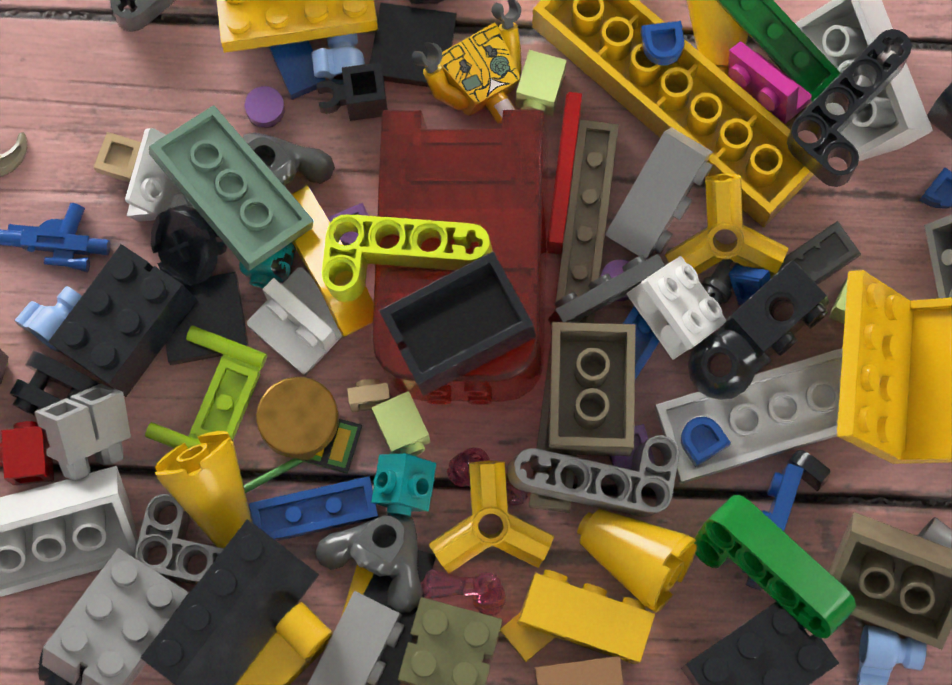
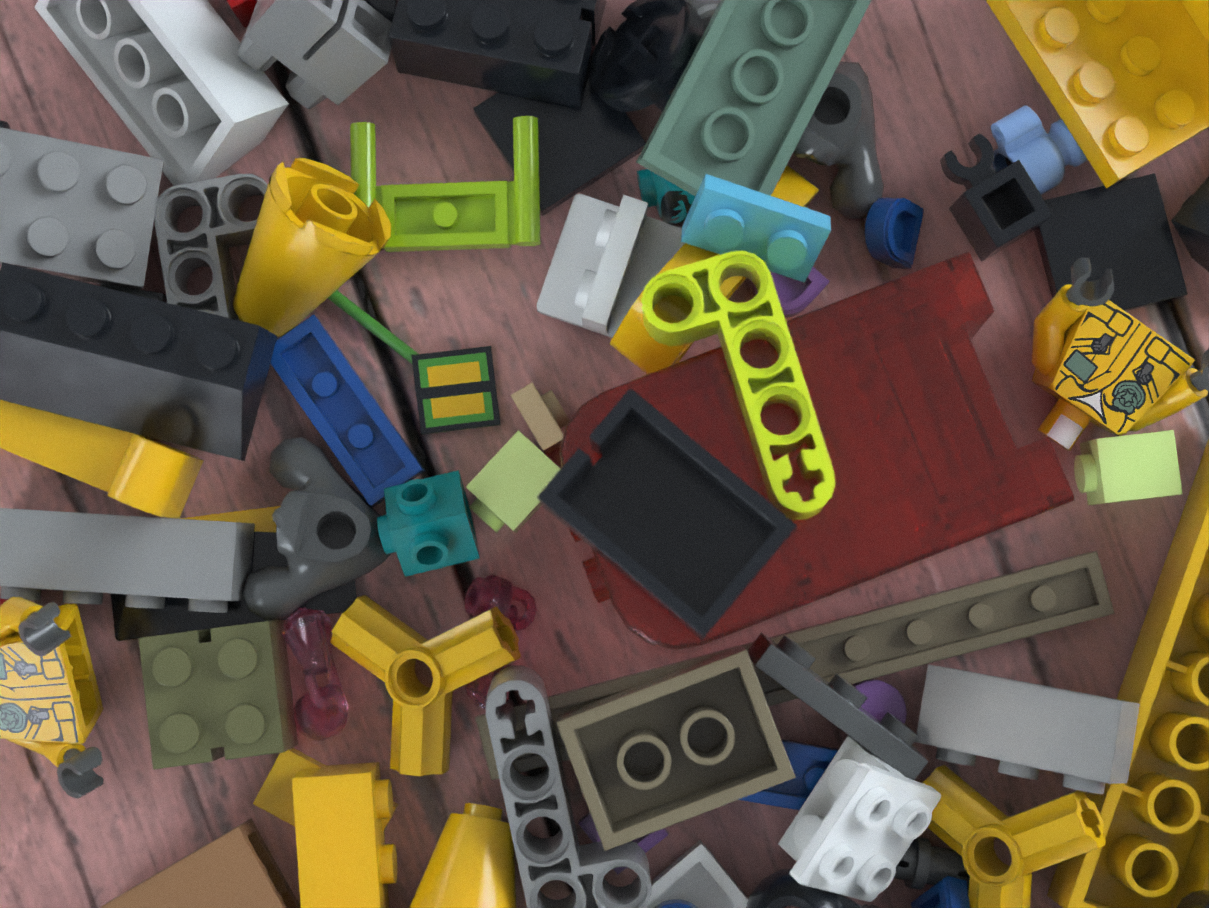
camera: 70 degrees right, 10 degrees up
(264, 106) = (916, 74): medium lavender tile -> none
(296, 67) = (996, 92): blue tile -> none
(297, 417) = (467, 328): pearl gold tile -> none
(306, 228) = (738, 218): none -> medium azure plate
(350, 155) = (893, 231): none -> blue tile
(564, 173) = (1004, 561): red tile -> none

